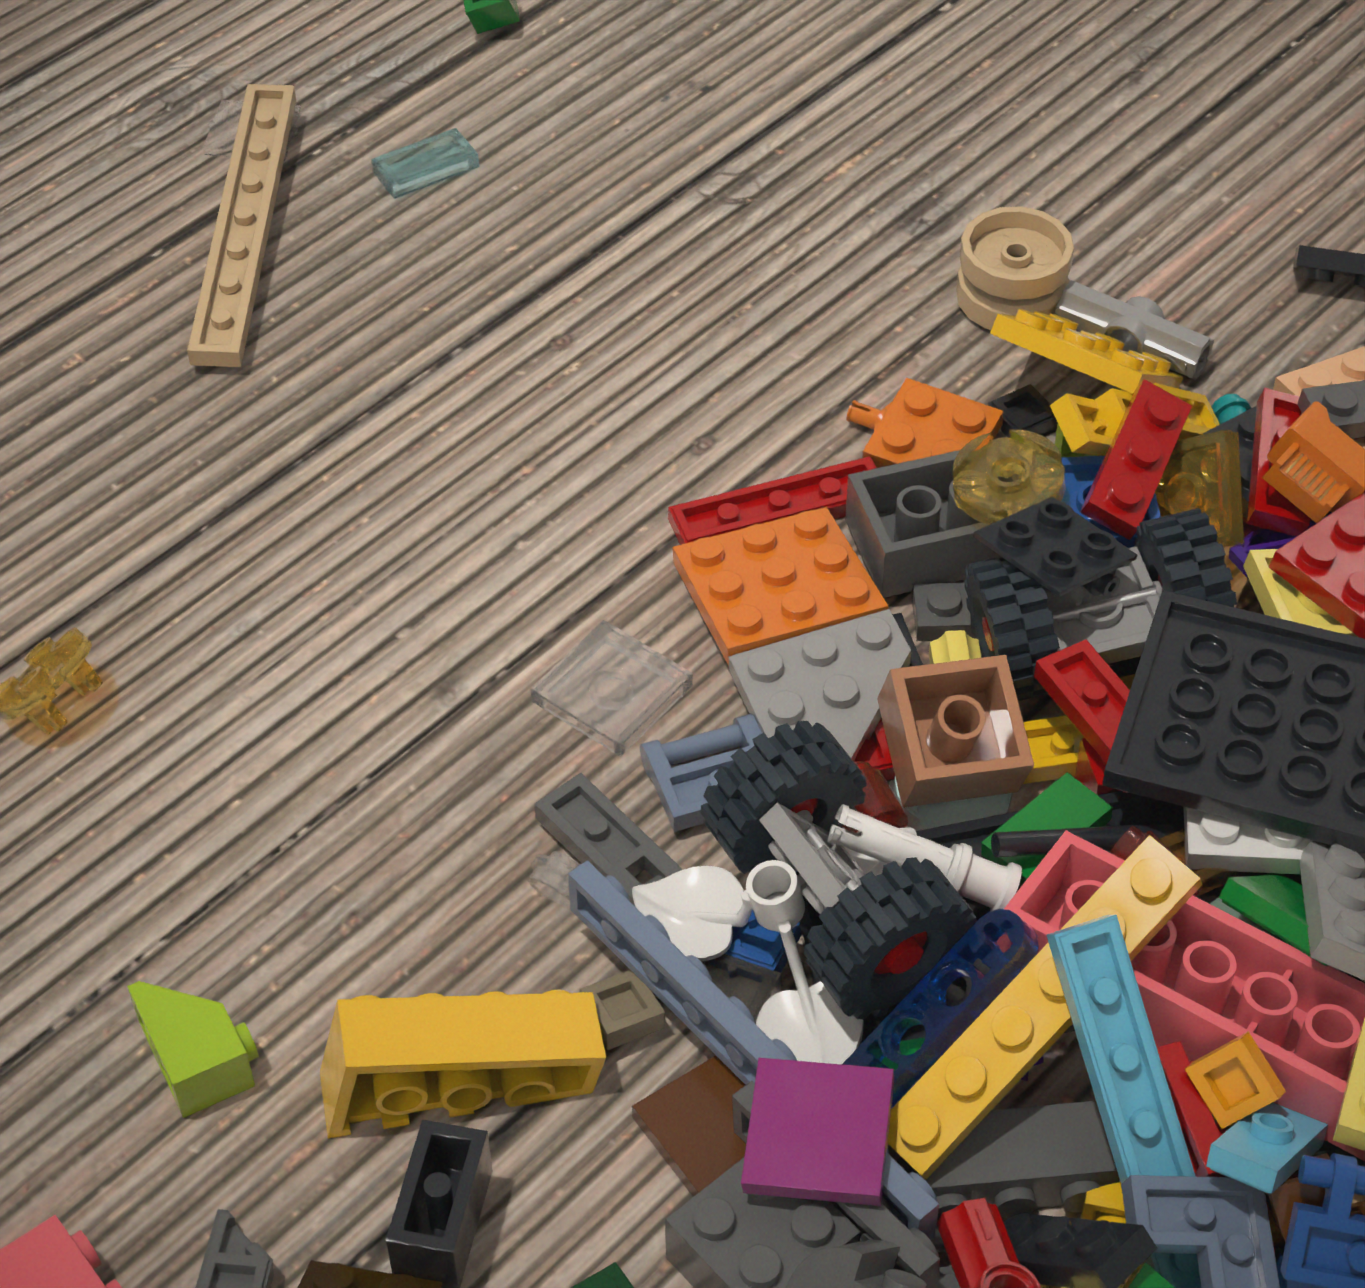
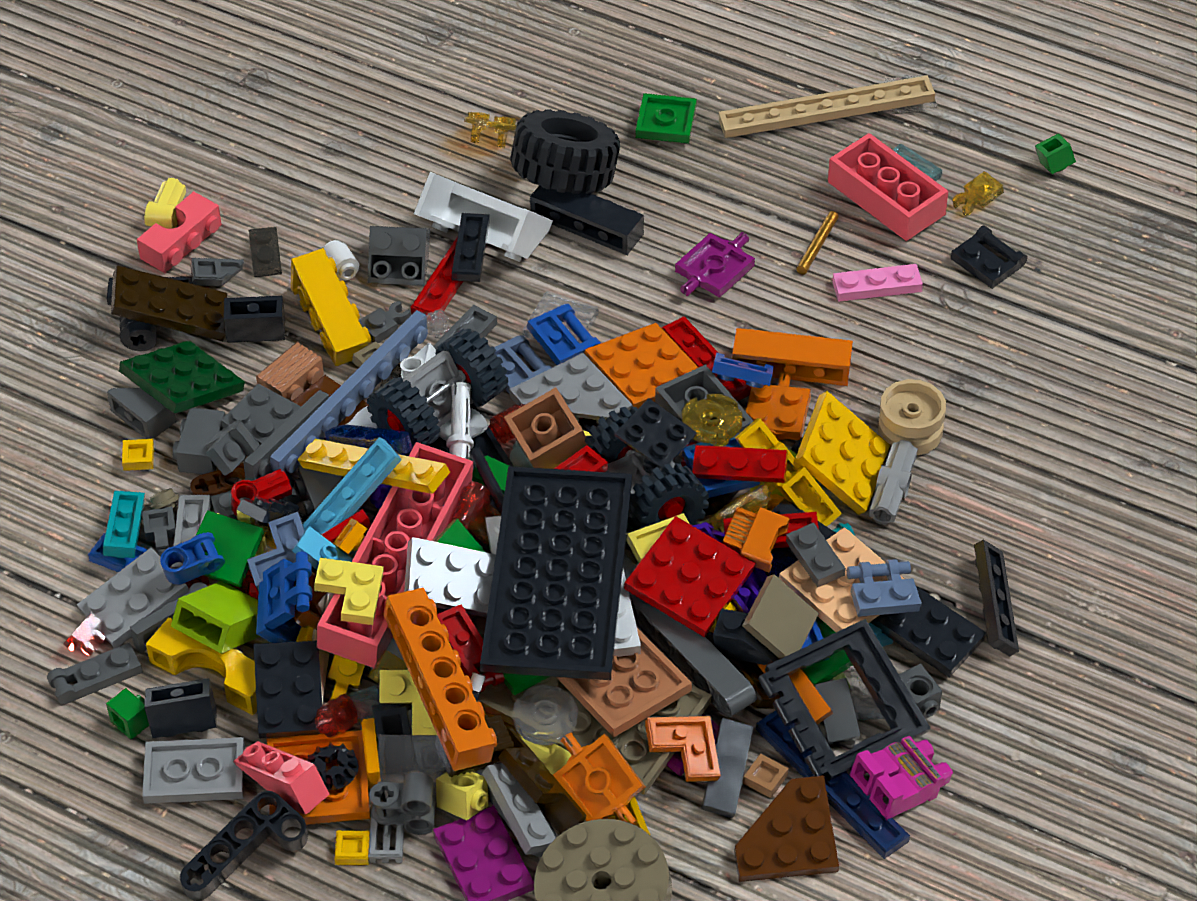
camera: 75 degrees right, 0 degrees up
(156, 428) = (666, 118): none -> green plate
(194, 1046) = (313, 227): lime slope -> none
(204, 1165) = (265, 252): none -> clear smoke plate
(221, 557) = (565, 151): none -> black tyre
(302, 1015) = (345, 261): none -> white brick
(320, 725) = (509, 227): none -> white windscreen
(335, 905) = (398, 255): none -> dark grey slope
(359, 587) = (590, 218): none -> black brick
(372, 779) = (470, 247): none -> black tile
(420, 843) = (440, 286): none -> red tile
(482, 184) = (887, 186): none -> coral brick
(502, 969) = (384, 324): none -> dark grey plate
(529, 98) = (979, 191): none -> clear yellow plate
(552, 307) = (817, 242): none -> pearl gold bar
(560, 440) = (715, 264): none -> magenta plate
(618, 1169) = (292, 372): none -> nougat brick
(672, 136) = (985, 264): none -> black plate
(673, 259) = (877, 282): none -> bright pink plate
(676, 678) = (556, 338): none -> blue plate
(818, 387) = (800, 355): none -> orange brick
(818, 1131) = (301, 413): magenta tile -> none
(858, 440) = (729, 369): none -> blue plate

